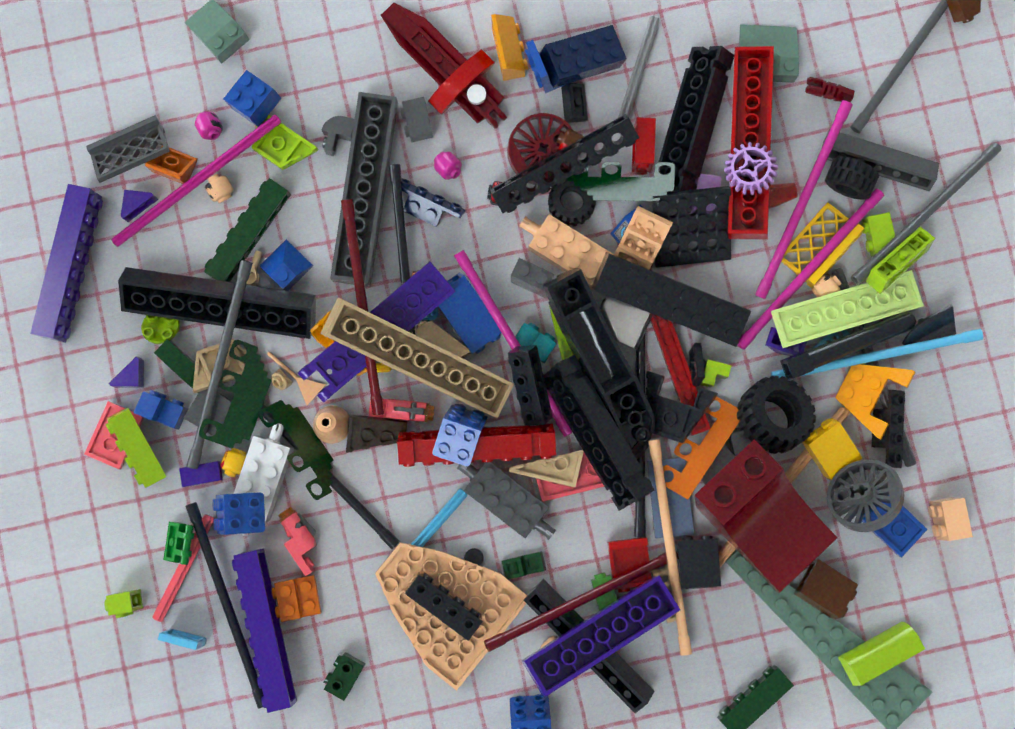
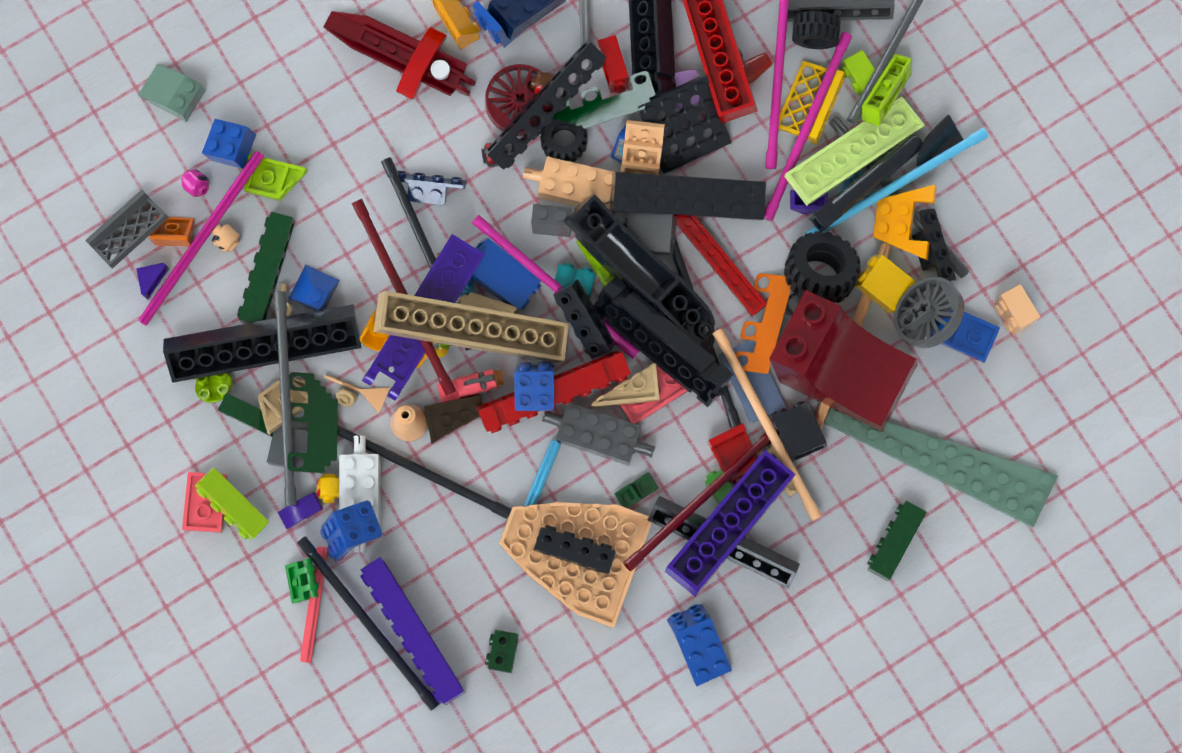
camera: 20 degrees left, 5 degrees down
(67, 263) = (105, 356): dark purple piece -> none
(123, 603) = (269, 653): lime brick -> none
(131, 376) = (201, 441): dark purple slope -> none
(157, 408) = (238, 462): blue brick -> none
(182, 639) = (337, 668): medium azure tile -> none
(296, 598) = (432, 595): orange plate -> none
(301, 539) = (417, 537): coral plate -> none
(309, 445) = (394, 447): dark green piece -> none
(336, 128) = (319, 145): dark grey brick -> none
(366, 182) = (363, 180): dark grey brick -> none
(417, 119) = (391, 111): dark grey brick -> none
(447, 165) = (435, 144): dark pink head -> none
(474, 555) = (587, 497): black tile -> none
(574, 102) = (534, 47): black slope -> none
(671, 417) = (728, 305): black wing -> none
(697, 364) = (733, 248): black plate -> none
(715, 369) = (750, 249): lime piece -> none
(758, 166) = (724, 45): lavender gear -> none
(826, 285) = (828, 135): light nougat head -> none
(826, 589) = (926, 414): reddish brown brick -> none
(881, 653) = (997, 455): lime brick -> none

